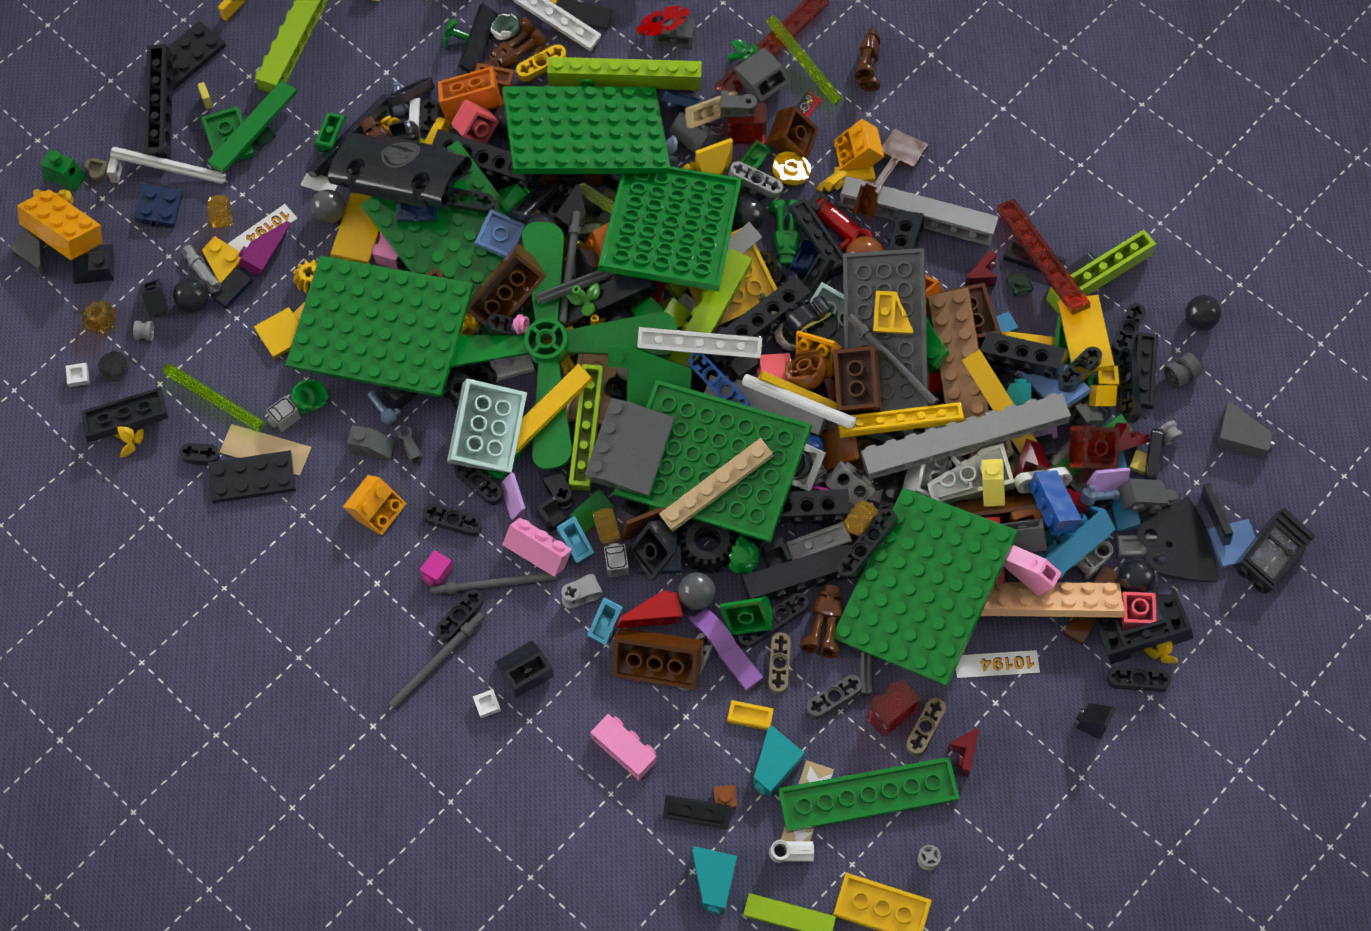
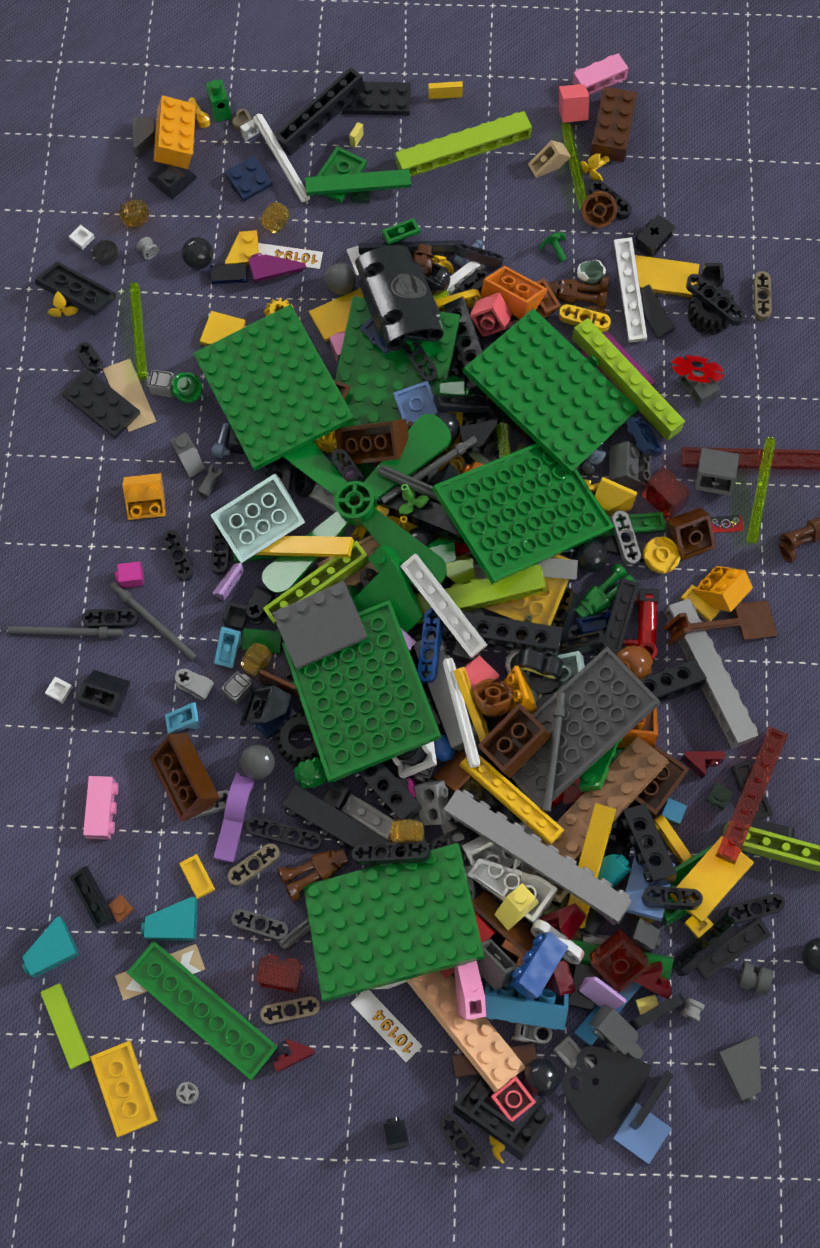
camera: 50 degrees right, 5 degrees up
(154, 298) = (177, 233): black slope -> none
(197, 263) = (226, 237): light grey pin -> none
(477, 38) = (564, 262): black tile -> none
(521, 324) = (353, 474): bright pink plate -> none
(537, 546) = (200, 626): bright pink brick -> none
(659, 610) = (219, 746): red slope -> none
(704, 111) = (650, 459): tan plate -> none
(716, 484) = (341, 708): tan plate -> none
(737, 105) = (665, 474): dark grey leg -> none
(742, 50) = (722, 441): green plant -> none
(747, 615) = (266, 811): green slope -> none
(794, 851) = (115, 990): white piece -> none
(834, 181) = (674, 593): yellow slope -> none
(890, 314) = (586, 720): yellow wing -> none
(1089, 495) = (574, 988): sand blue piece -> none
(1103, 395) = (674, 933): yellow tile -> none
(1273, 551) = (658, 1170): black door -> none

